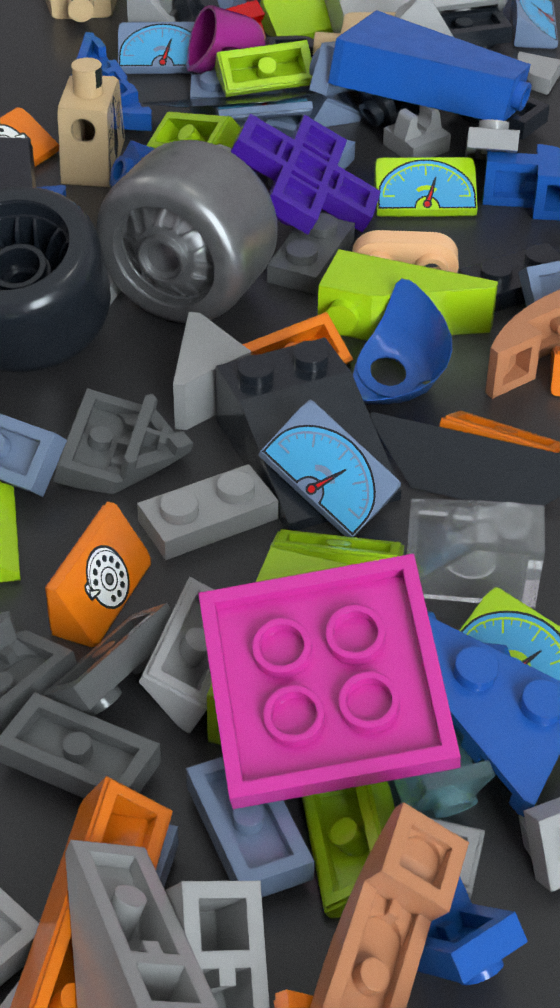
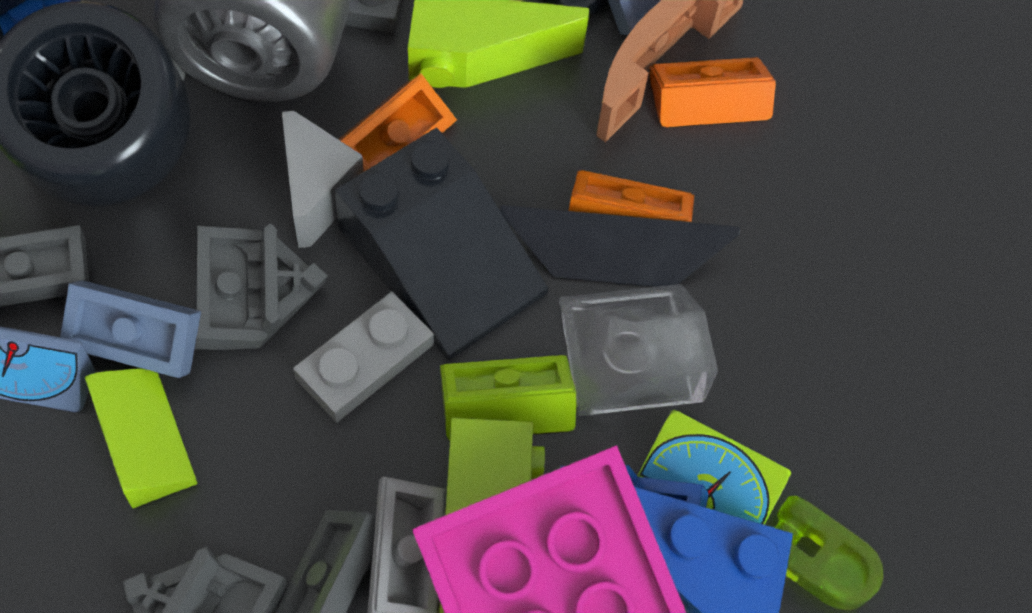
camera: 20 degrees left, 20 degrees up
(96, 578) = (281, 476): orange slope -> none
(330, 469) = (479, 294): slope -> none
(412, 335) = (521, 90): blue piece -> none

